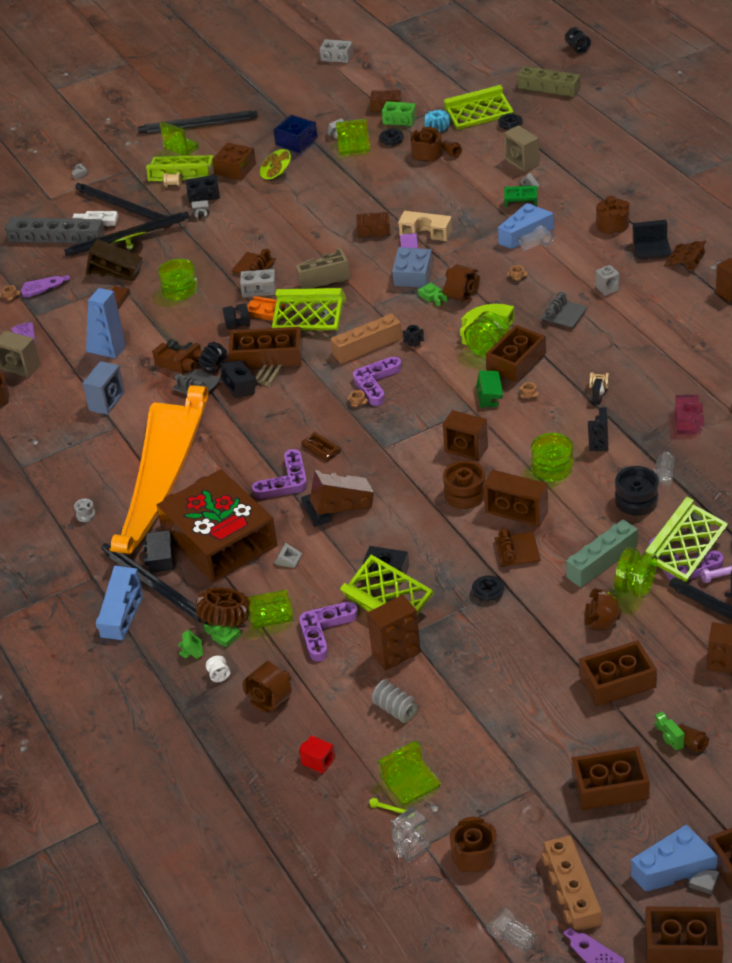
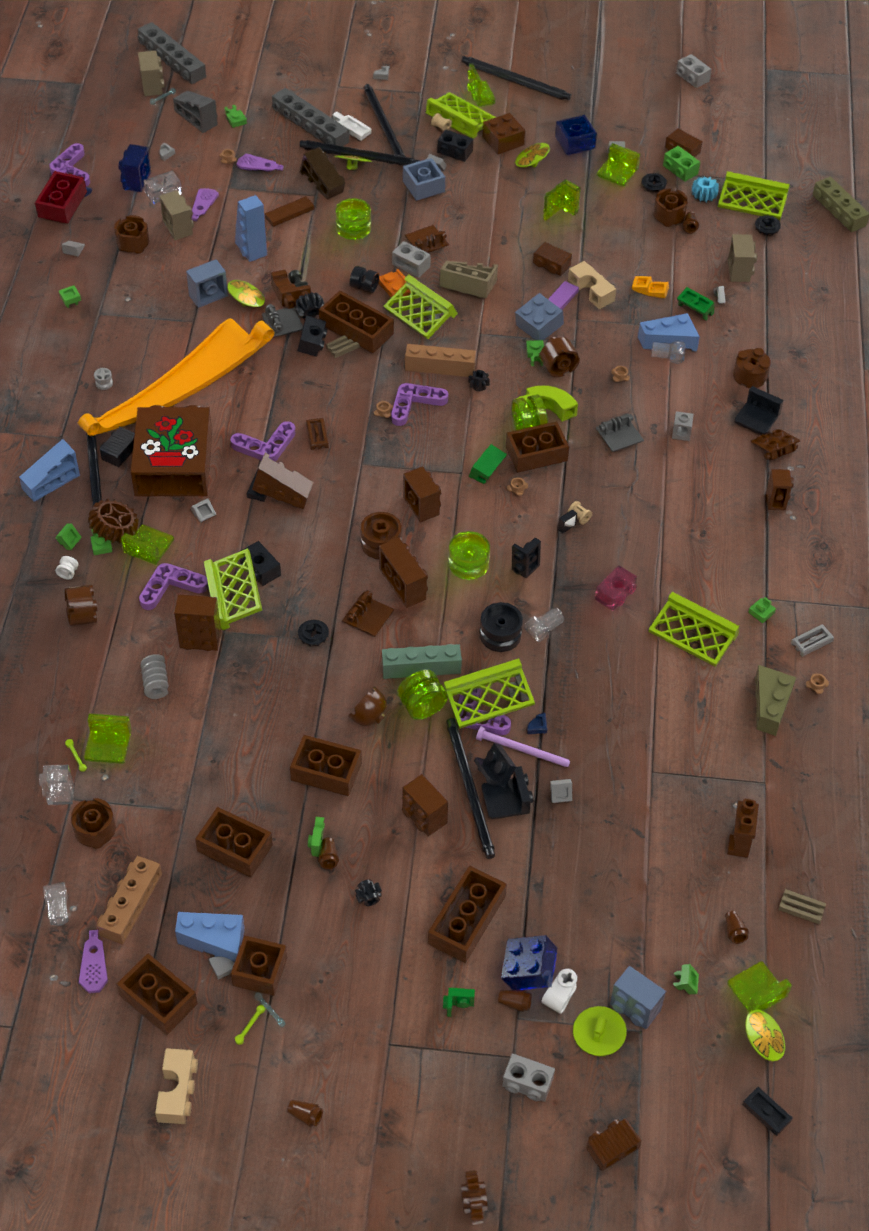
camera: 30 degrees right, 10 degrees up
(144, 379) = (246, 293): none -> shield
(205, 222) = (424, 179): none -> sand blue brick
(317, 754) = (65, 680): red brick -> none
(338, 178) = (563, 196): none -> clear neon green bracket
(466, 206) = (645, 286): none -> light orange slope

